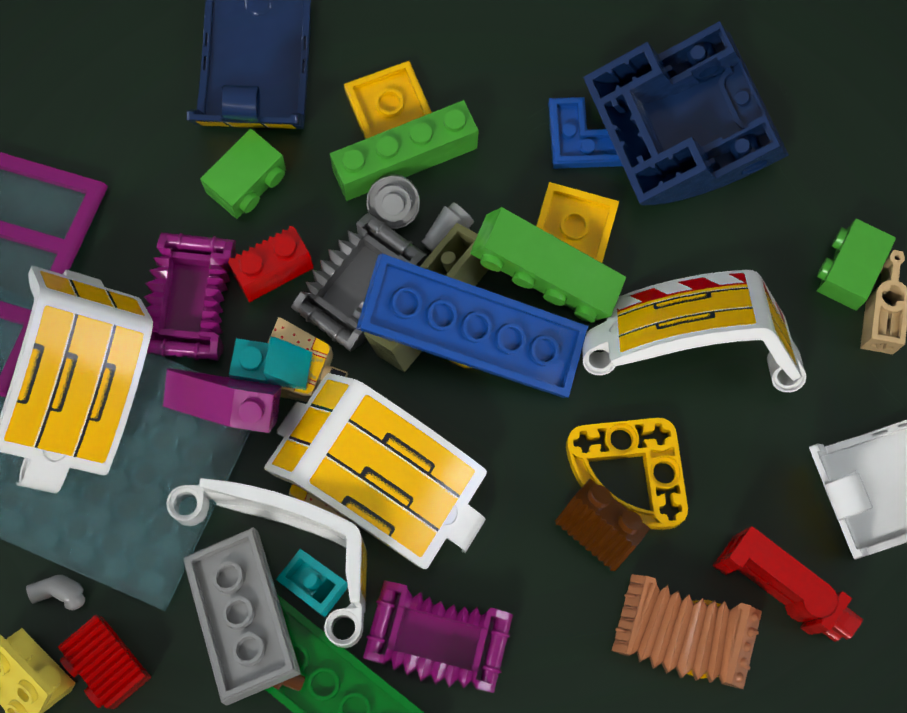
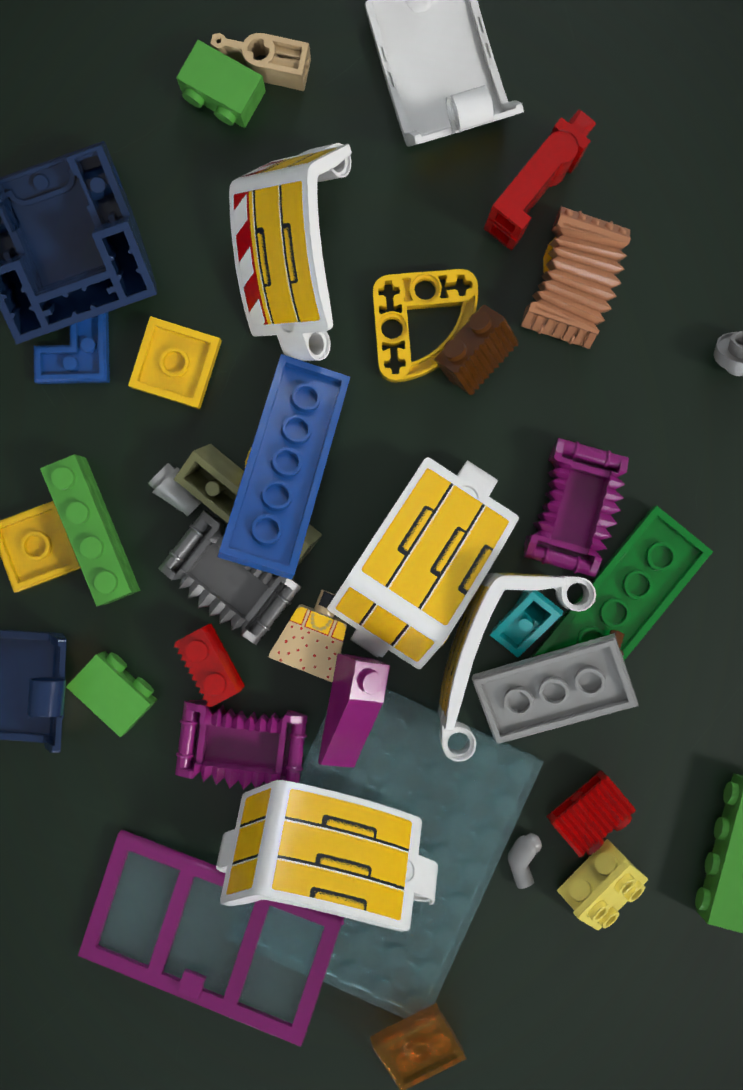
camera: 85 degrees left, 15 degrees up
(271, 363) = (317, 663): teal slope -> none
(393, 200) = (145, 542): light grey plate -> none
(547, 265) = (221, 389): bright green brick -> none

